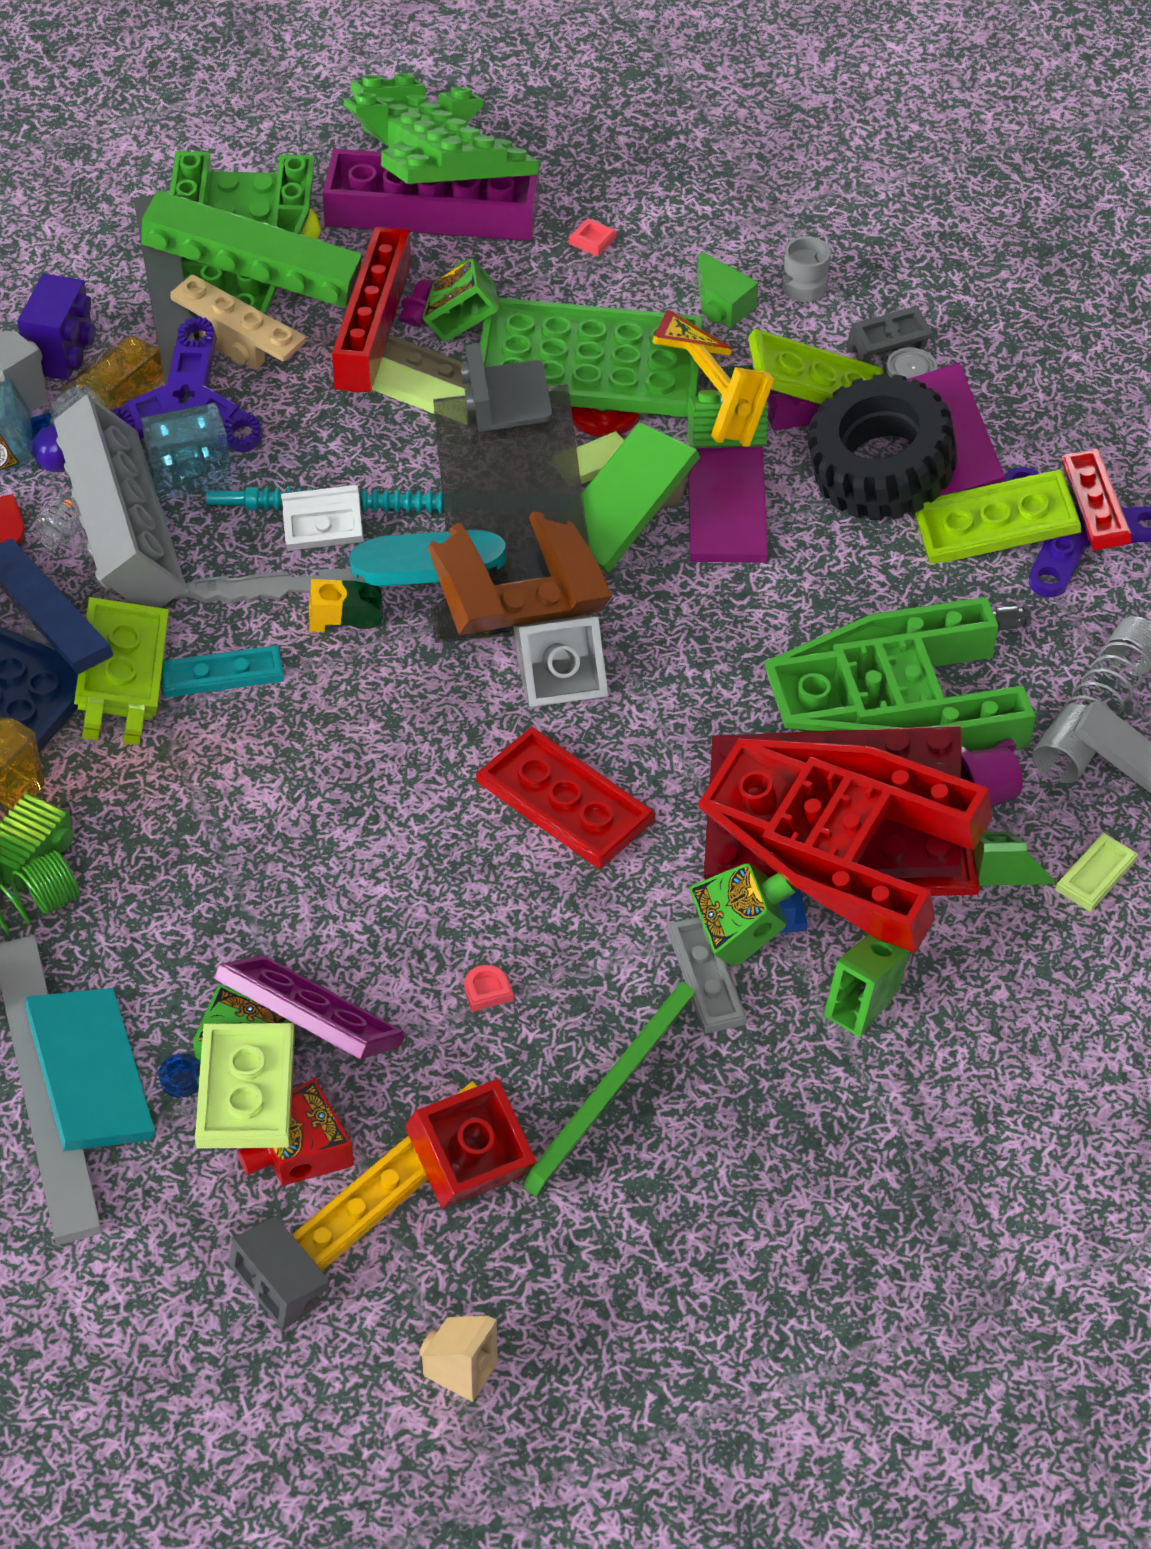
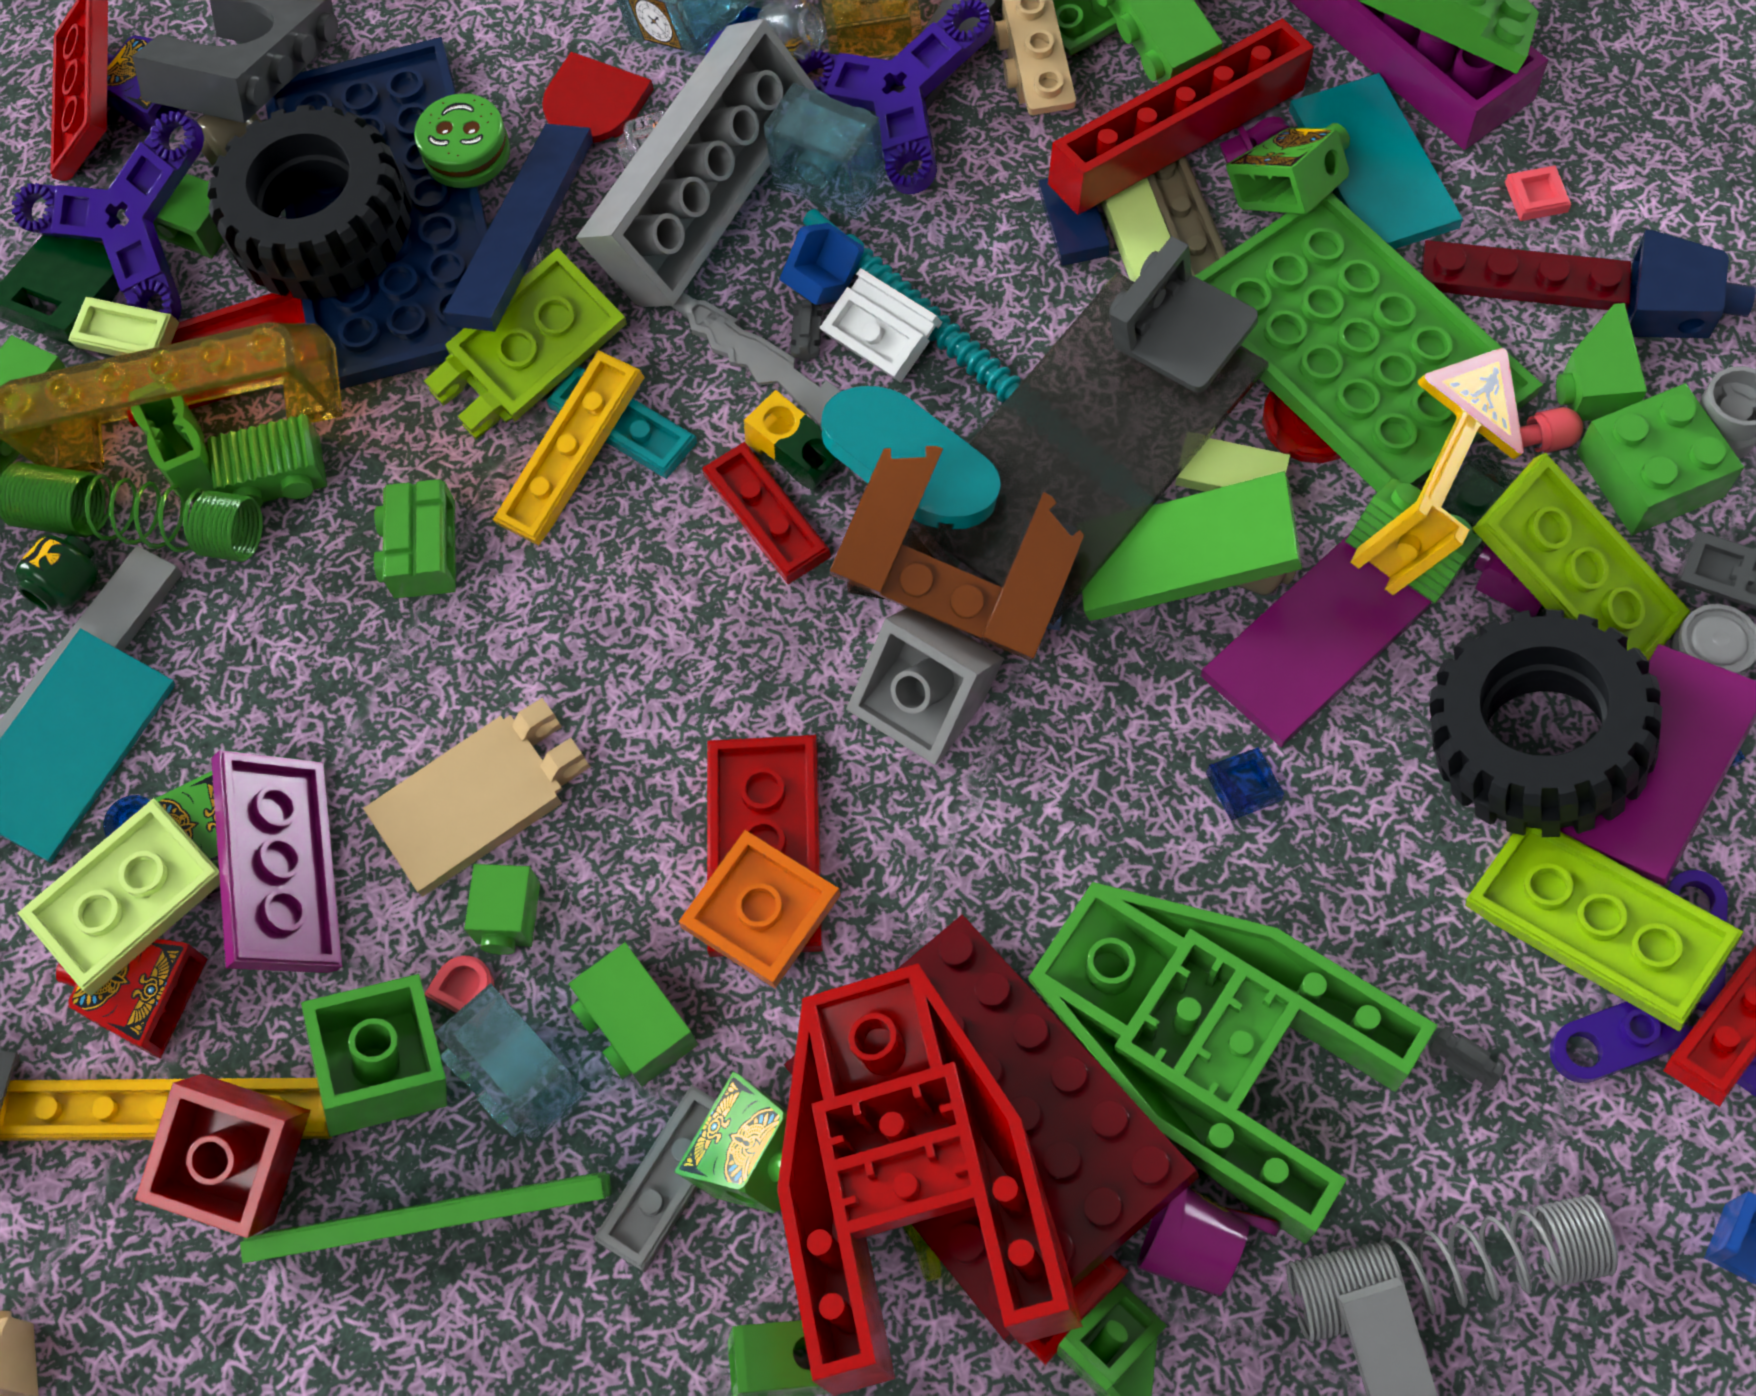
camera: 55 degrees right, 15 degrees up
(178, 807) = (417, 539): none -> bright green brick
(211, 700) = (569, 447): none -> yellow tile
(252, 509) = (821, 263): none -> blue panel
(276, 553) = (806, 330): none -> dark grey piece
(366, 652) = (766, 513): none -> red tile
(370, 408) = (1074, 235): none -> dark blue tile
(376, 901) = (475, 796): none -> tan tile
(465, 928) = (502, 907): none -> bright green brick
(490, 1036) = (374, 1054): none -> bright green brick
(513, 273) = (1389, 173): none -> teal tile
(573, 975) = (502, 1055): none -> clear light blue brick
(599, 916) = (632, 1014): none -> bright green brick
(609, 812) = (759, 908): none -> orange plate
(634, 276) = (1526, 275): none -> dark red plate
(715, 230) = (1682, 288): none -> dark blue torso
(730, 331) = (1553, 428): none -> coral cylinder
(770, 588) = (1244, 783): none -> clear blue tile
(796, 306) = (1659, 459): none -> bright green brick

